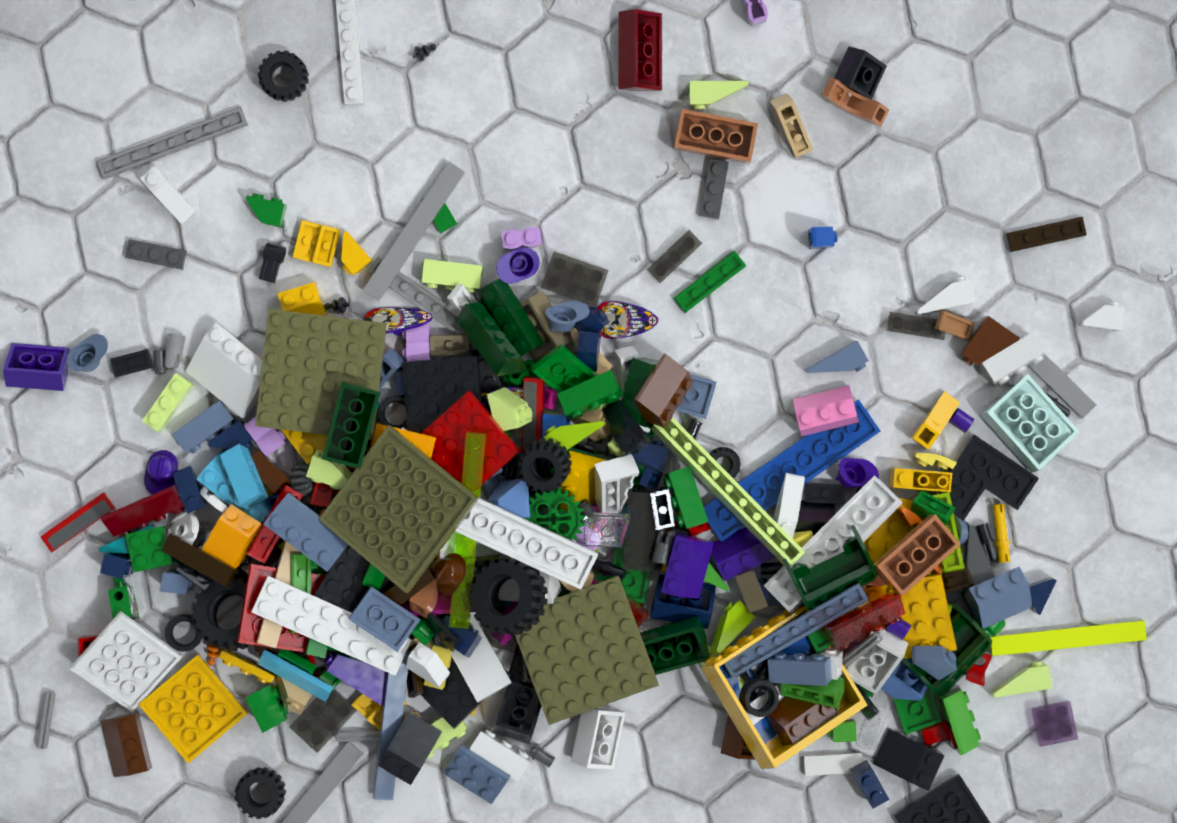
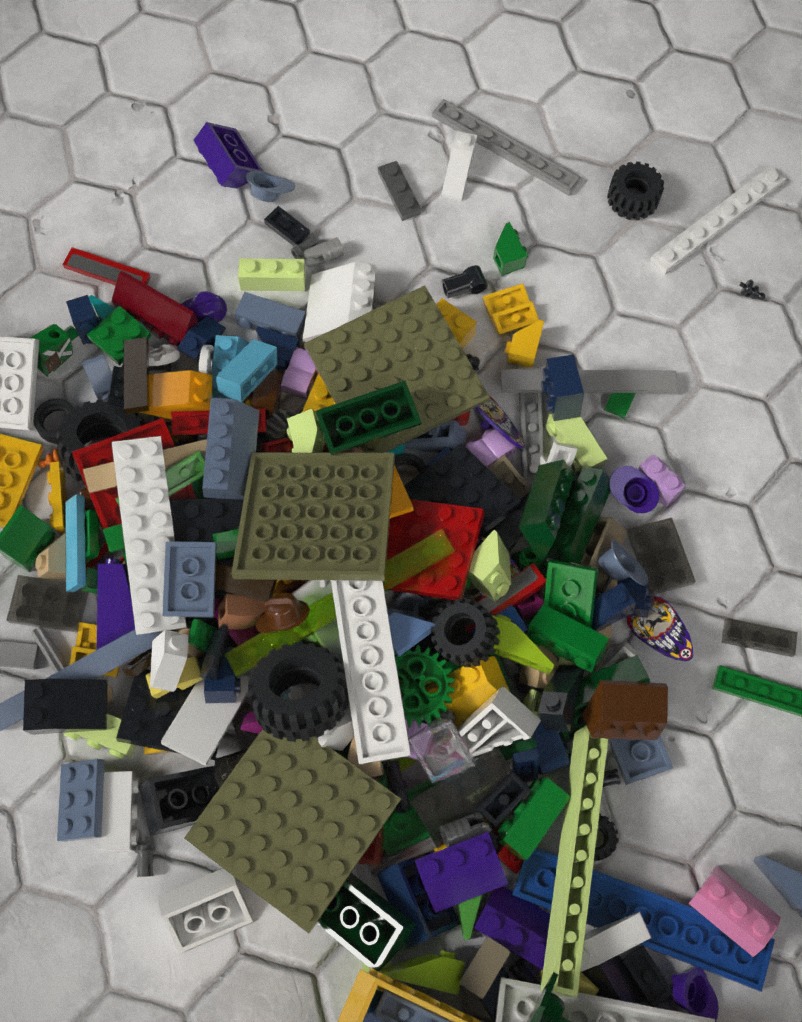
camera: 50 degrees right, 20 degrees down
(407, 261) = (562, 387): none -> dark blue brick

